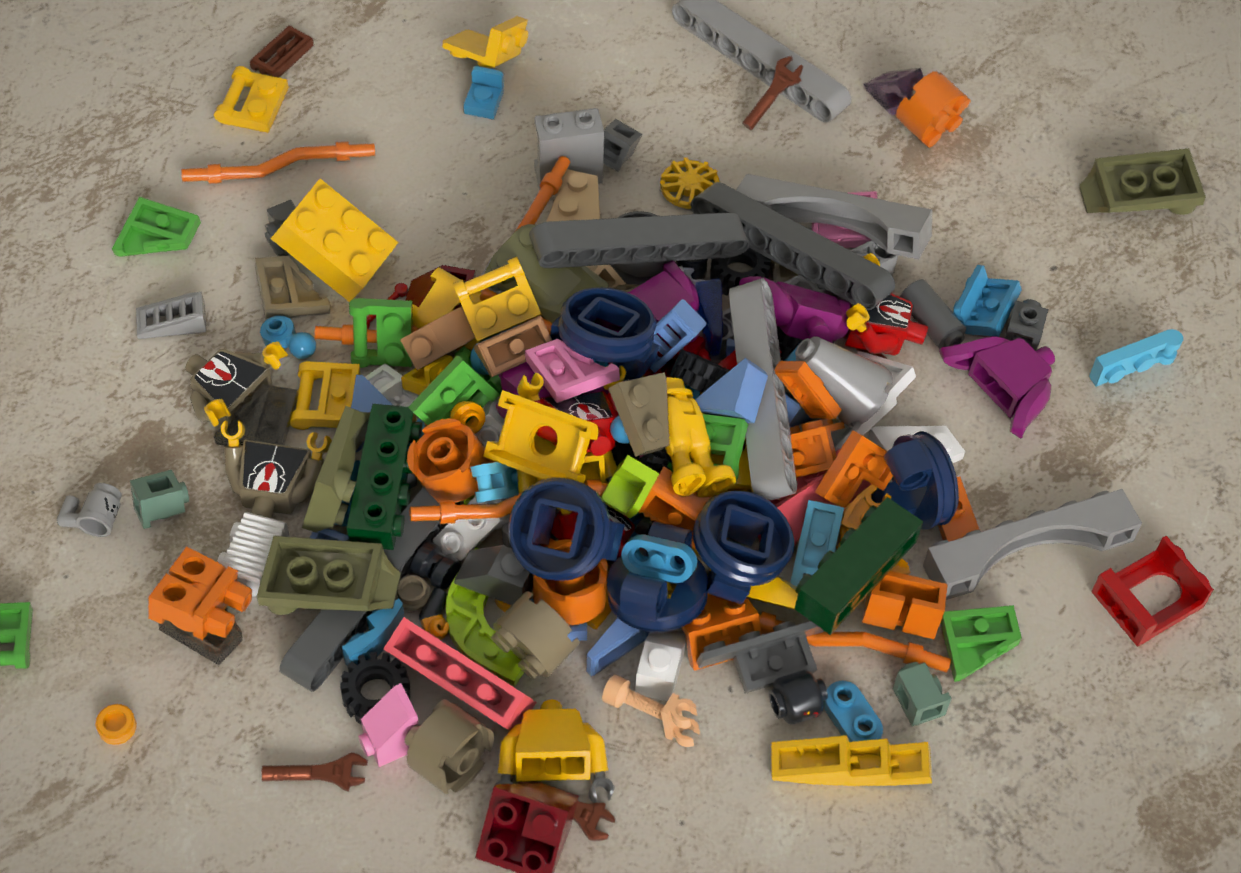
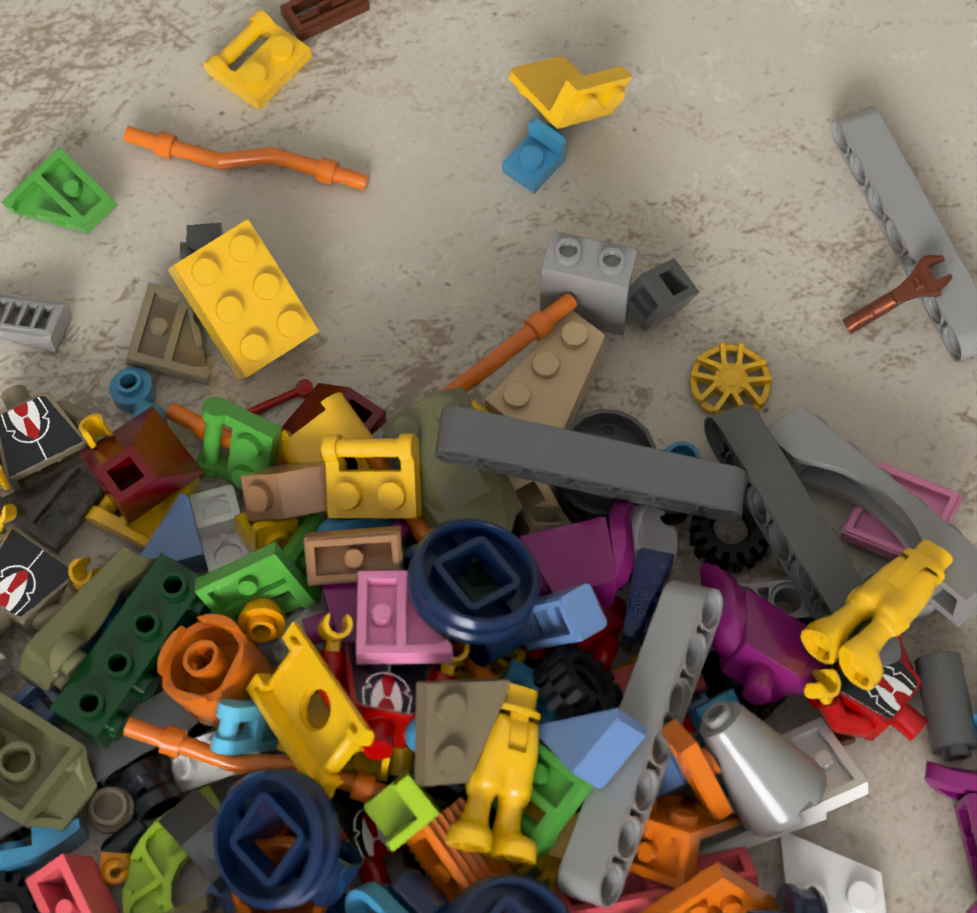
camera: 30 degrees right, 10 degrees up
(316, 369) = (140, 464): none -> dark red slope
(872, 247) = (891, 600): none -> yellow piece

